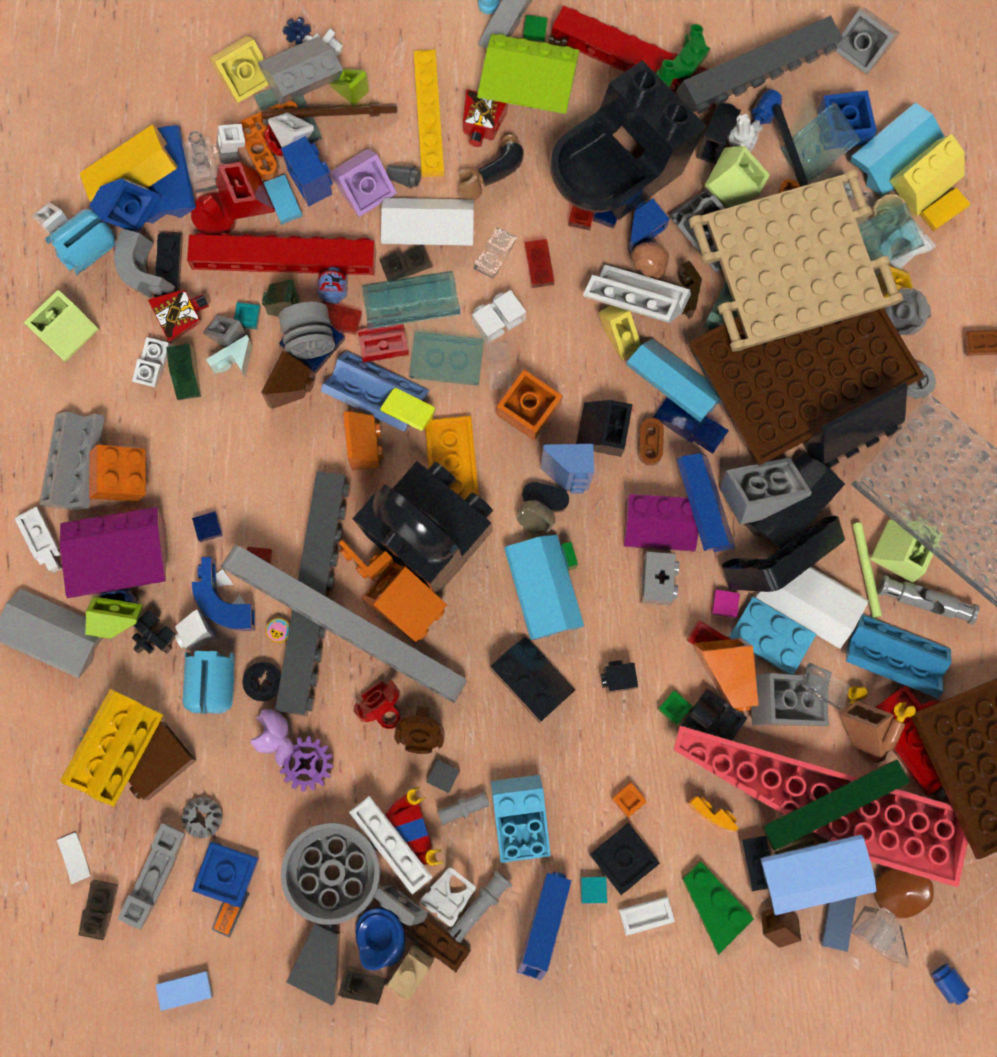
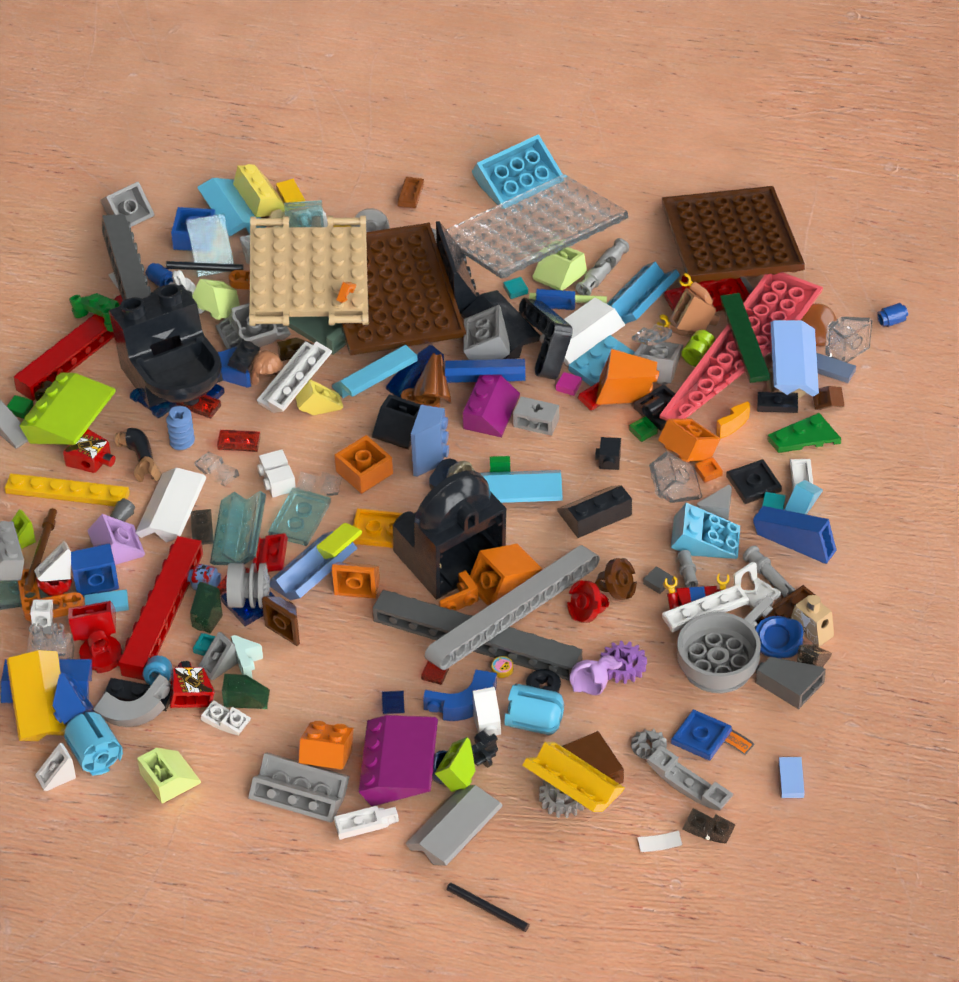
camera: 70 degrees left, 30 degrees down
(193, 276) = (155, 666): none -> dark azure head
(529, 196) = (180, 428): none -> medium blue piece
(567, 824) = (718, 503): none -> light grey slope
(597, 764) = (674, 479): none -> clear slope
(604, 927) = (803, 497): none -> medium azure slope
(653, 230) = (243, 356): none -> black plate
(654, 769) = (688, 439): none -> orange brick
(667, 445) = (433, 380): none -> dark orange hat
(764, 309) = (346, 288): none -> orange tile
(824, 748) = (697, 347): none -> lime wheel
(855, 556) = (557, 299): none -> blue tile
(863, 507) = (515, 287): none -> teal tile

